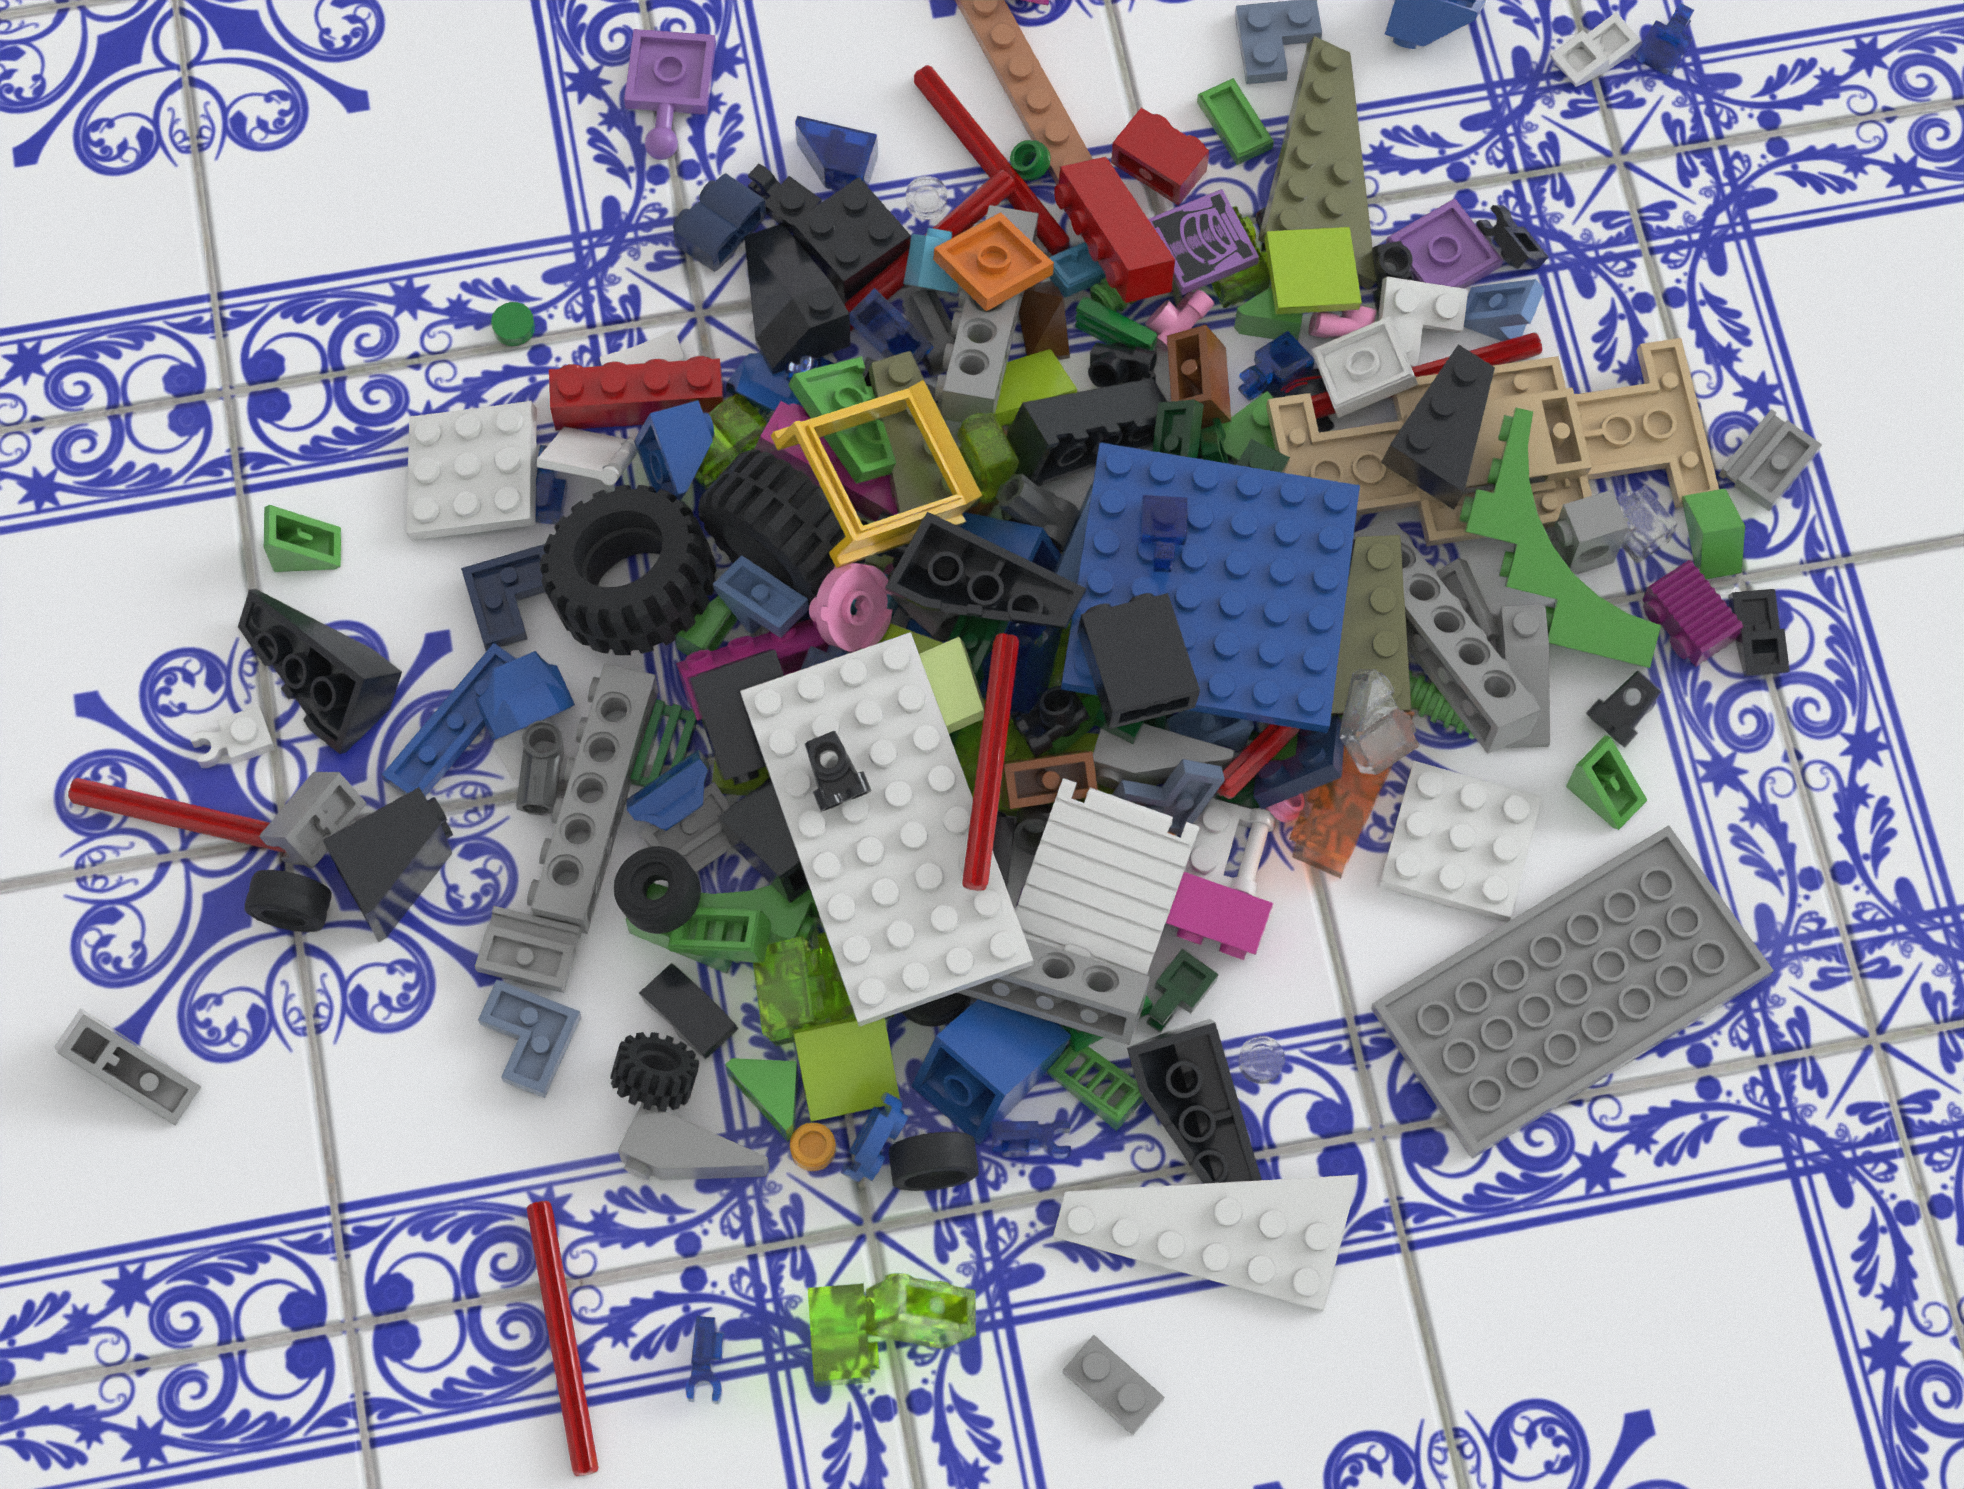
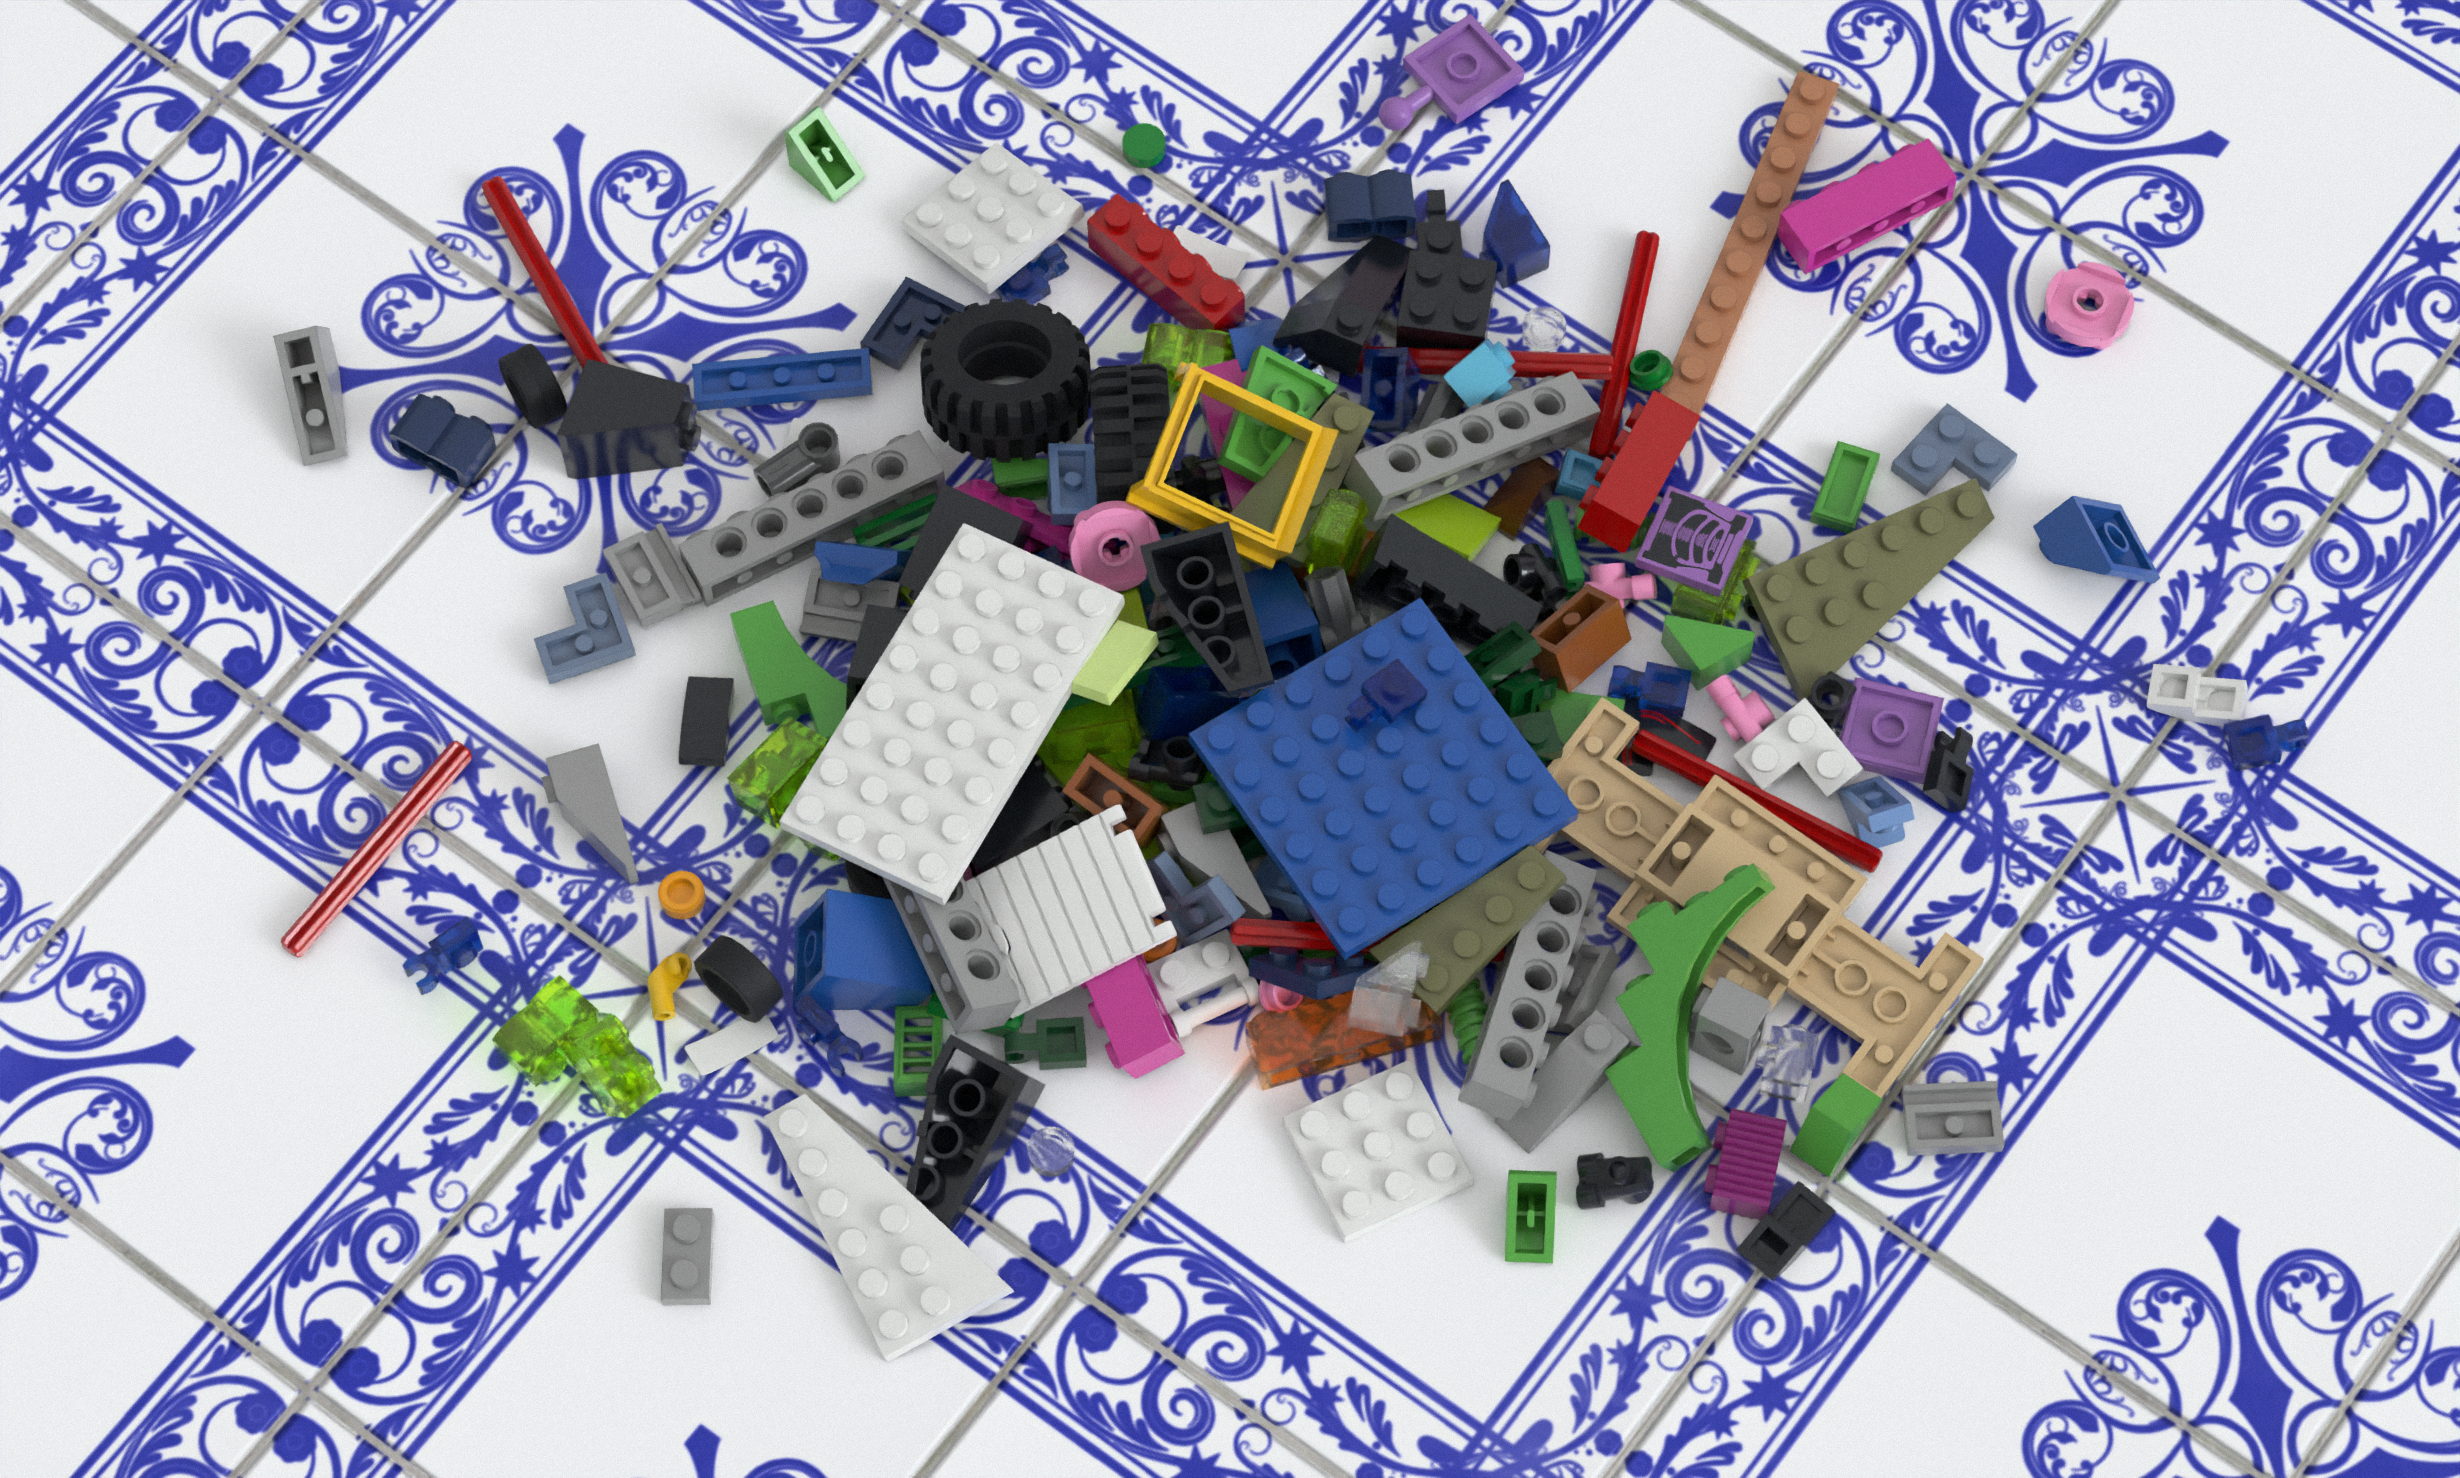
camera: 50 degrees right, 5 degrees down
(241, 736) = (636, 253): white plate -> none
(262, 1004) = (443, 440): none -> dark blue brick
(312, 814) = (621, 344): light grey hinge -> none
(330, 675) = (741, 259): black wedge -> none
(522, 694) = (845, 399): blue slope -> none
(588, 454) = (1078, 279): white piece -> none
(654, 1071) = (618, 746): black tyre -> none
(674, 446) = (1136, 327): blue slope -> none
(674, 906) = (763, 589): black tyre -> none
(743, 945) = (788, 707): bright green slope -> none
(770, 1088) = (696, 827): bright green slope -> none
(835, 783) = (950, 642): black plate -> none
(845, 1067) = (758, 860): lime tile -> none
(872, 1137) = (706, 923): blue plate -> none
(874, 1216) = (665, 981): none -> yellow arm
(966, 1214) = (730, 1044): none -> white sticker
(990, 762) = (1067, 733): red axle -> none
(993, 261) = (1510, 406): orange plate -> none
(1138, 659) = (1250, 763): black brick -> none
(1160, 155) = (1752, 458): red brick -> none
(1312, 270) = (1749, 637): lime tile -> none
(1364, 367) = (1708, 745): white tile -> none
(1443, 429) = (1696, 831): black wedge -> none
(1571, 991) = (1327, 1331): light grey plate -> none

